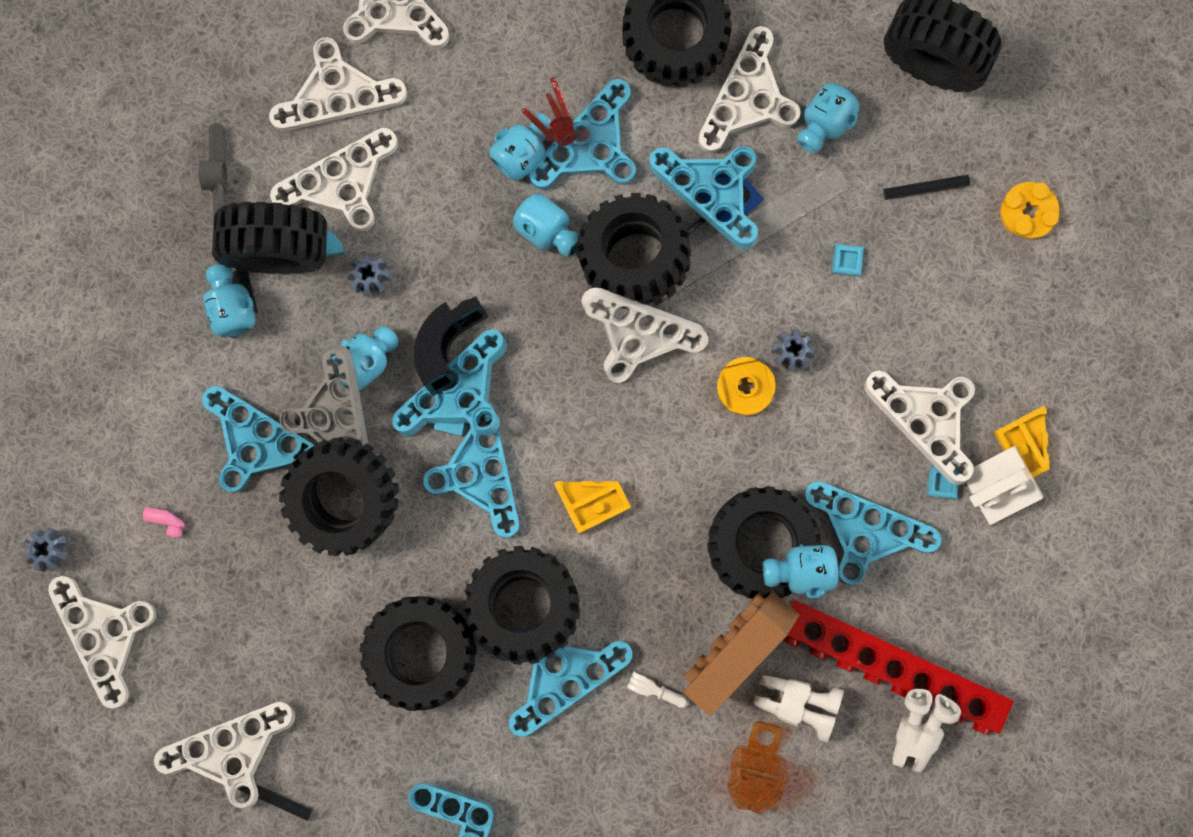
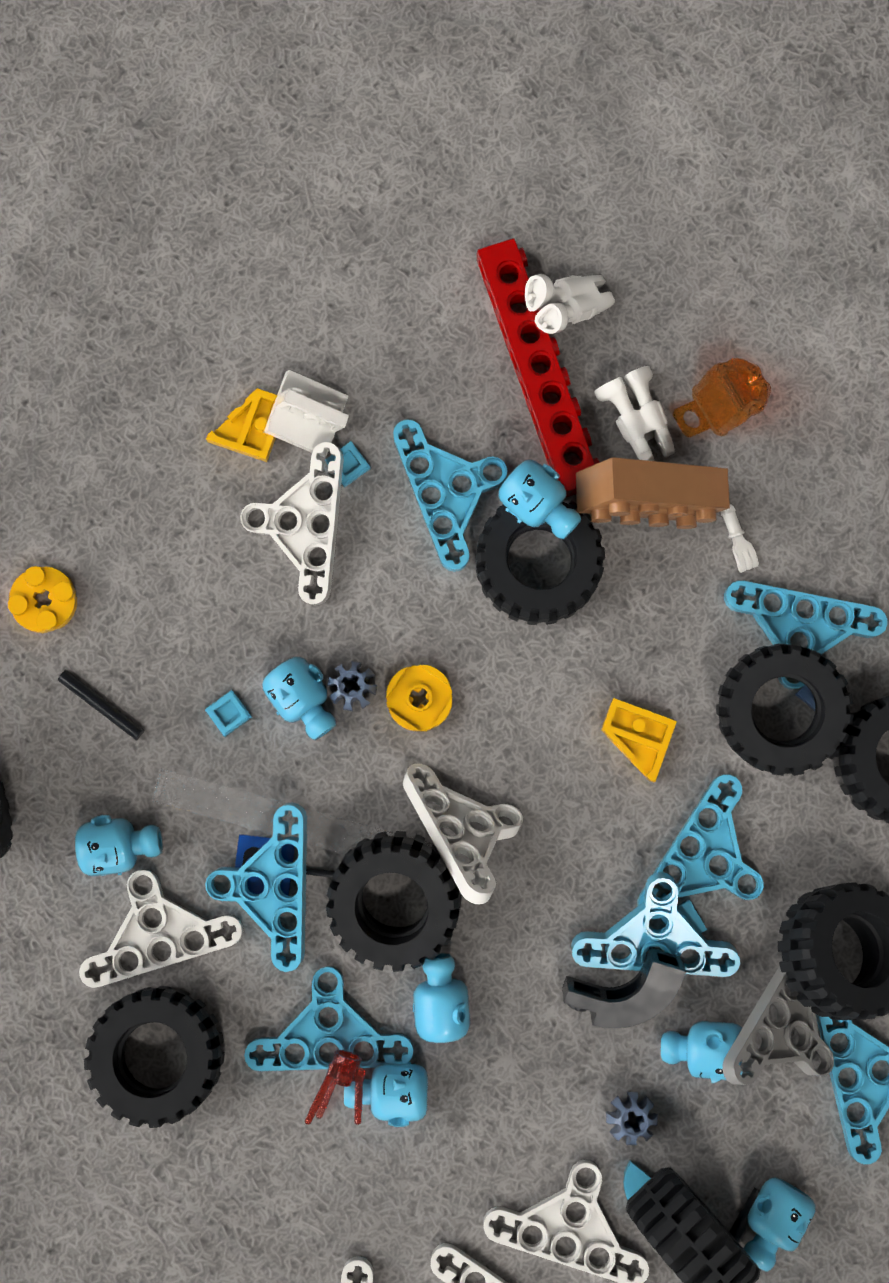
camera: 135 degrees left, 0 degrees up
(818, 312) = (297, 695): none -> medium azure piece

